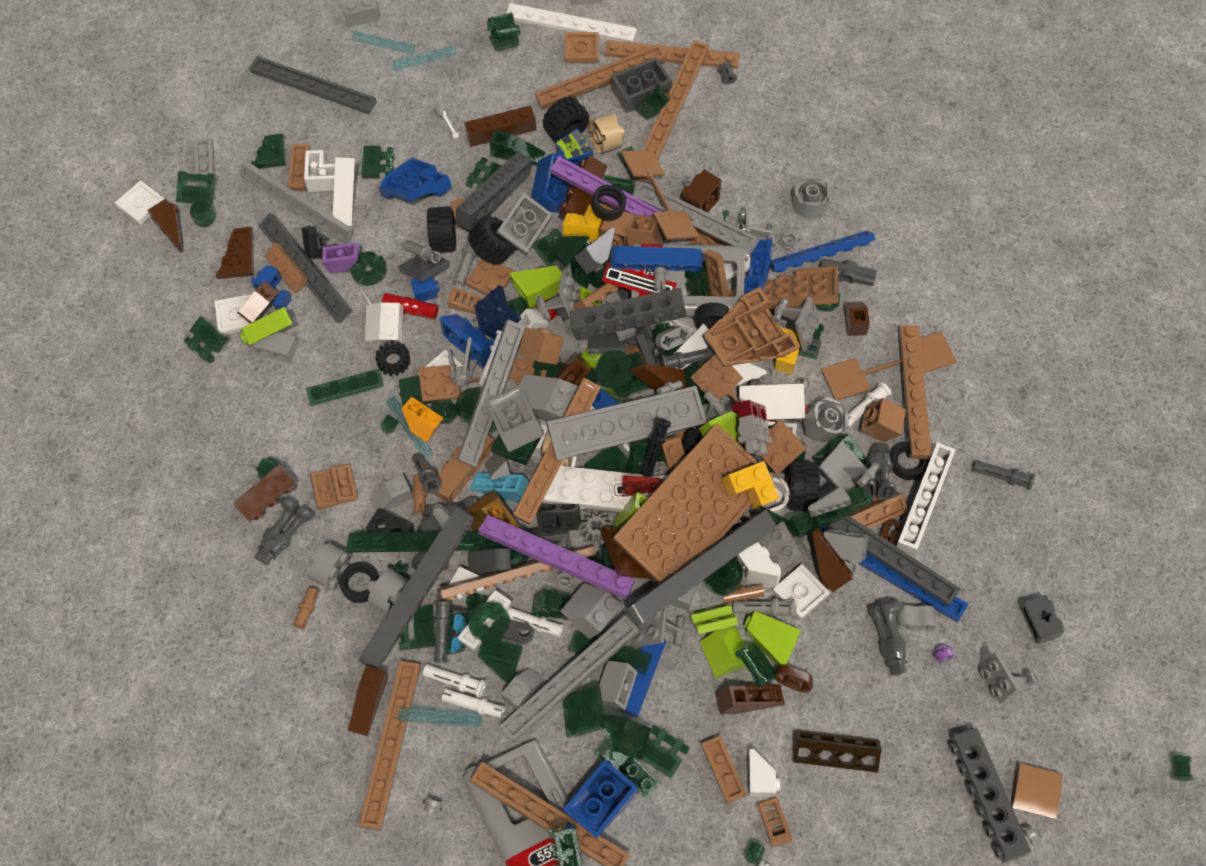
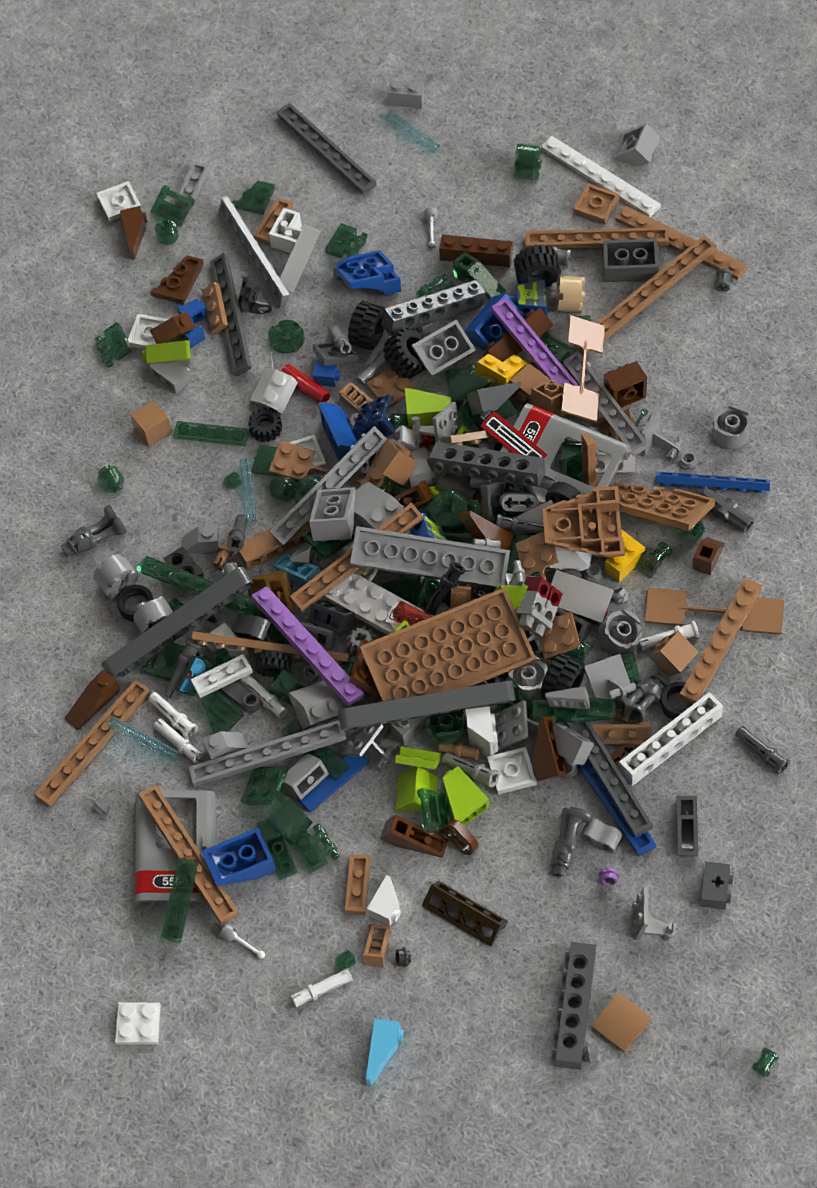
camera: 30 degrees right, 5 degrees down
(265, 493) = (95, 495): reddish brown brick -> none
(283, 400) = (151, 423): none -> medium nougat head
(306, 608) = (81, 605): medium nougat pin -> none
(340, 257) = (264, 316): medium lavender slope -> none
(342, 485) = (165, 517): medium nougat slope -> none
(421, 419) = (259, 486): light orange slope -> none
(424, 58) = (442, 160): clear light blue axle -> none
(462, 375) = (313, 461): light grey plant -> none
(484, 633) = (222, 667): clear green plate -> none
(527, 586) = (272, 663): none -> black tyre
(608, 190) = (530, 345): black tyre -> none
(652, 257) = (537, 424): blue beam -> none
(653, 102) = (631, 279): clear green slope -> none
(660, 279) = (532, 443): light grey pin -> none
(755, 482) = (511, 649): yellow brick -> none
(759, 266) = (643, 473): blue slope -> none
(805, 319) = (647, 535): light grey plate -> none
(808, 821) = (402, 957): none -> pearl dark grey plate
(983, 574) = (687, 825): none -> dark grey slope

